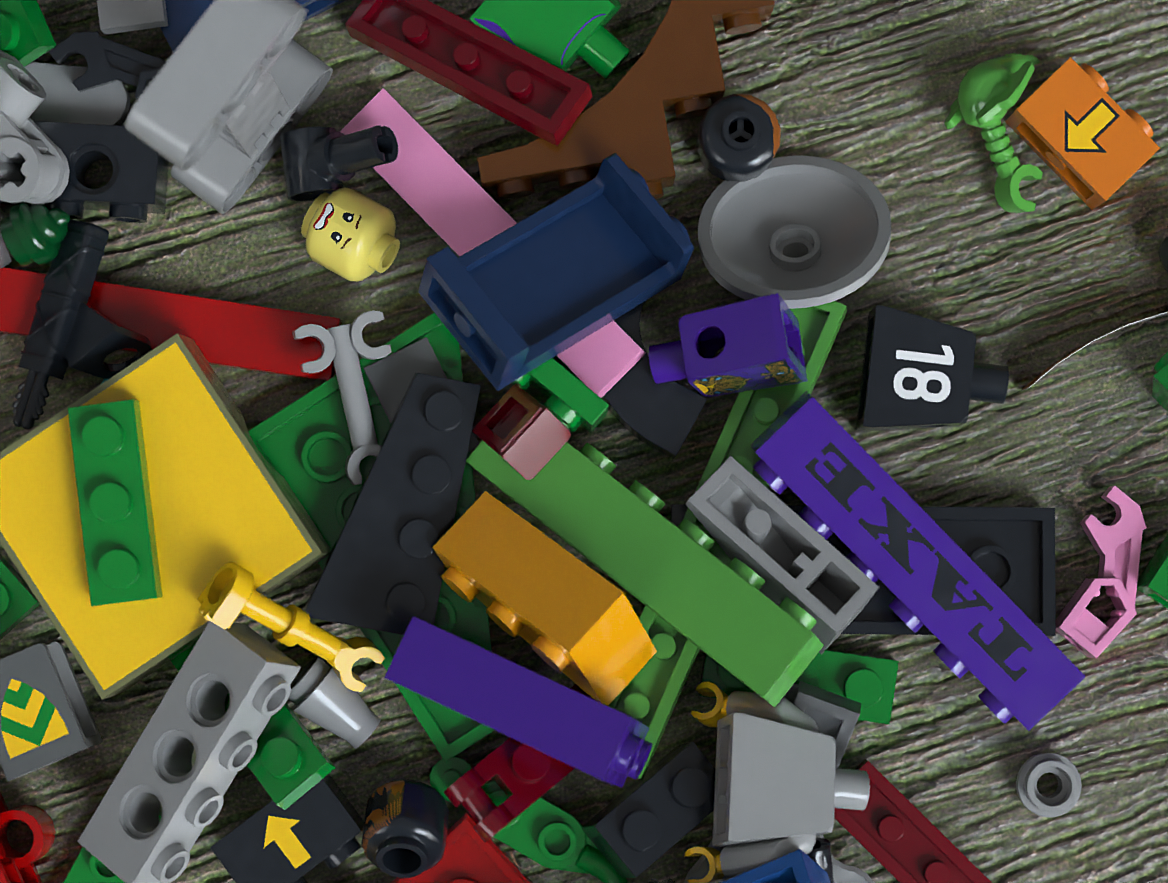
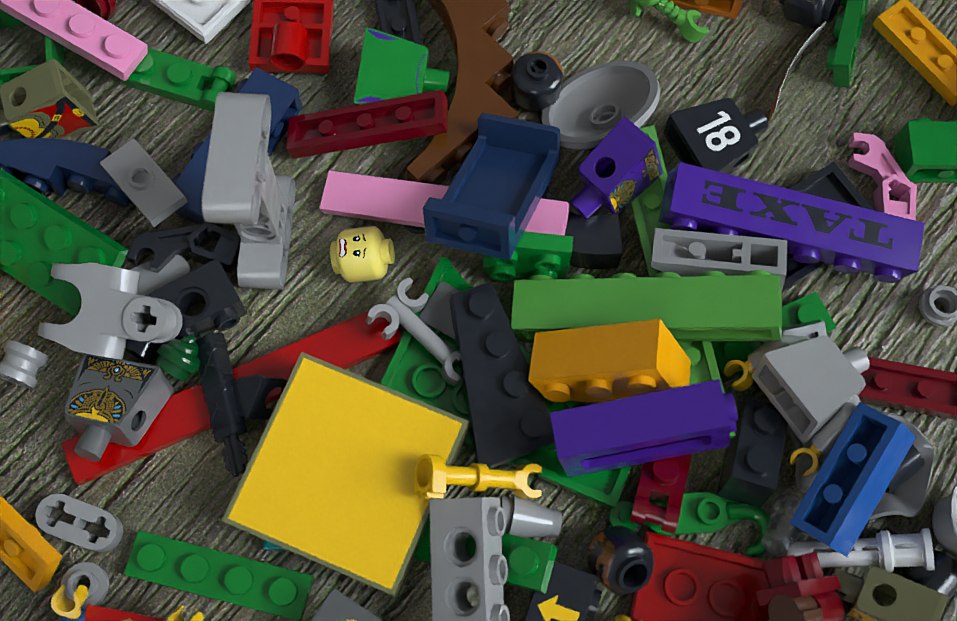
camera: 30 degrees left, 15 degrees down
(115, 502) = (327, 470): green plate -> none
(323, 158) = (320, 223): black pin -> none
(522, 432) = (532, 289): dark red slope -> none

